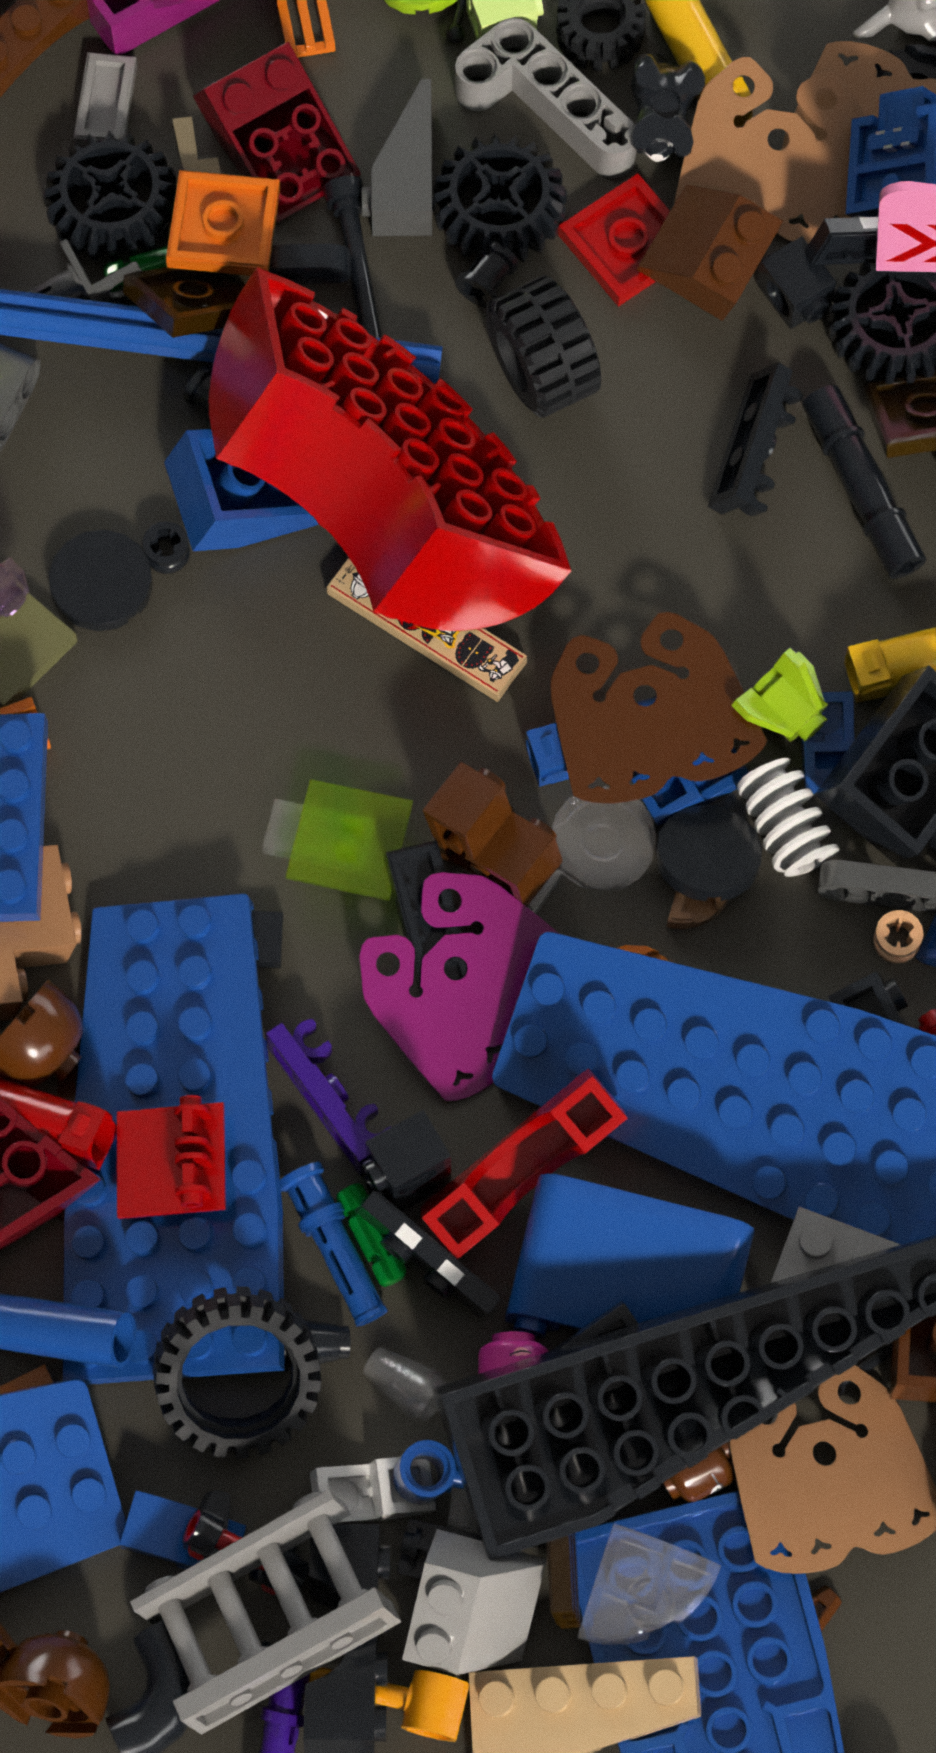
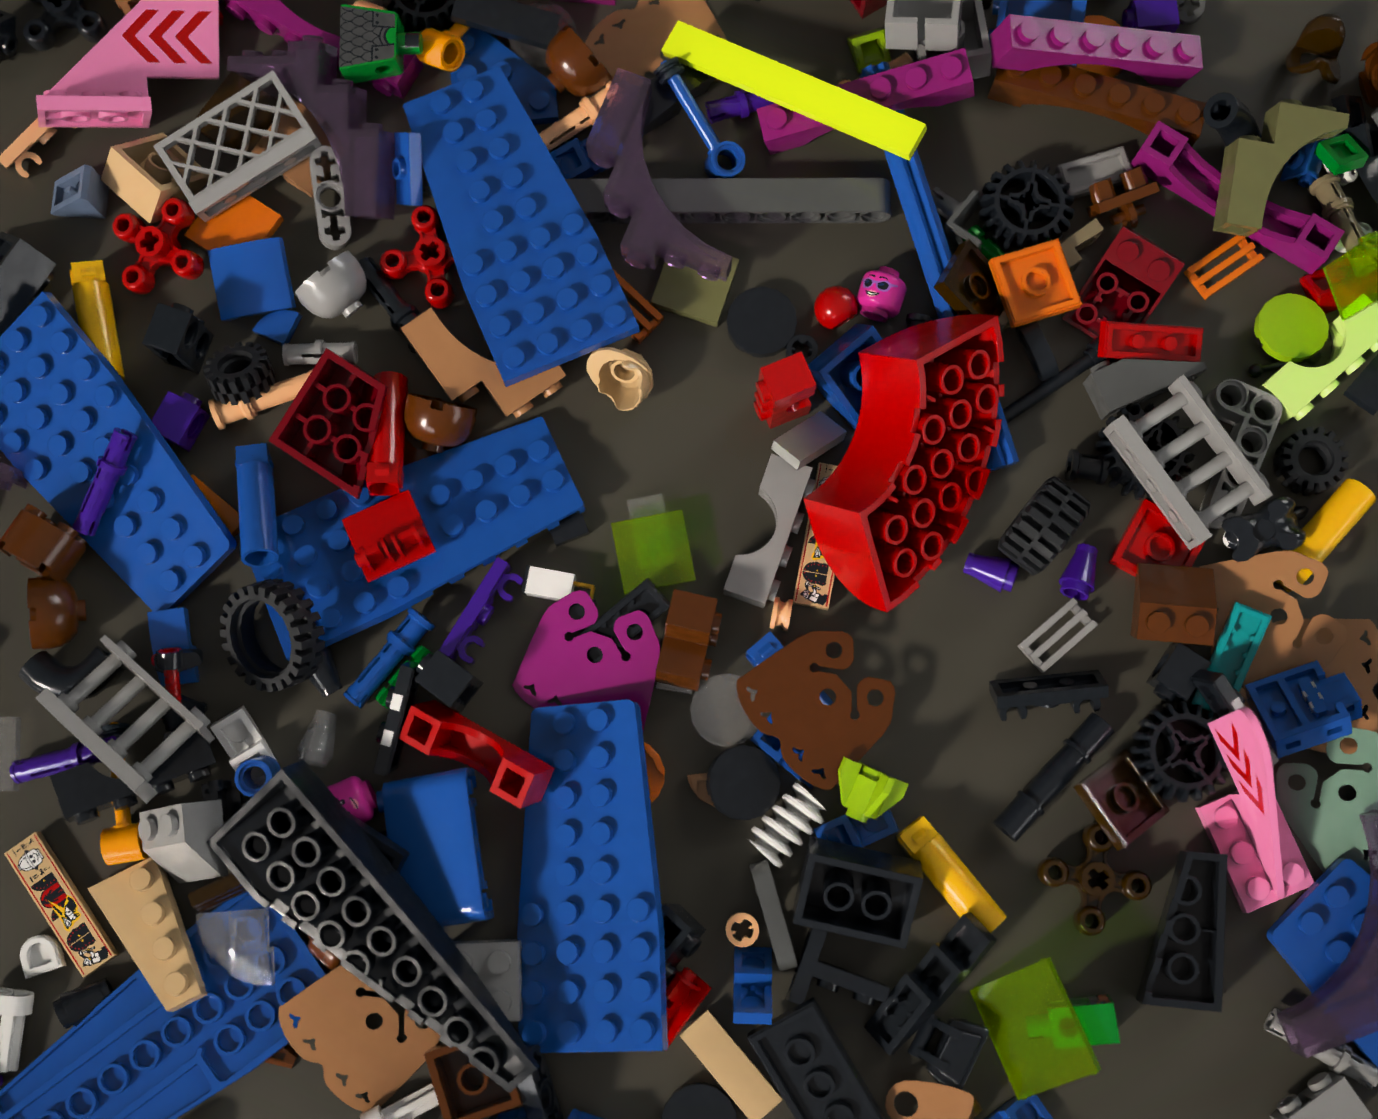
camera: 70 degrees right, 10 degrees up
(94, 778) = (621, 376): none -> tan piece
(128, 478) = (835, 307): none -> red piece
(140, 415) = (881, 294): none -> dark pink head
(153, 100) = (1105, 198): none -> reddish brown hips
(220, 572) = (784, 390): none -> red arch
(294, 581) = (808, 440): none -> light grey tile
(337, 987) = (554, 586): none -> white piece
(345, 643) = (754, 573): none -> light grey arch
(362, 131) = (1149, 342): none -> red tile
(507, 715) = (781, 613): none -> light nougat bush
(548, 193) = (1172, 495): none -> light grey fence
(570, 438) = (992, 570): none -> dark purple cone
(621, 341) = (1080, 573): none -> dark purple cone
(673, 366) = (1079, 615): none -> light grey tile
(792, 197) = (1236, 646): none -> teal plate

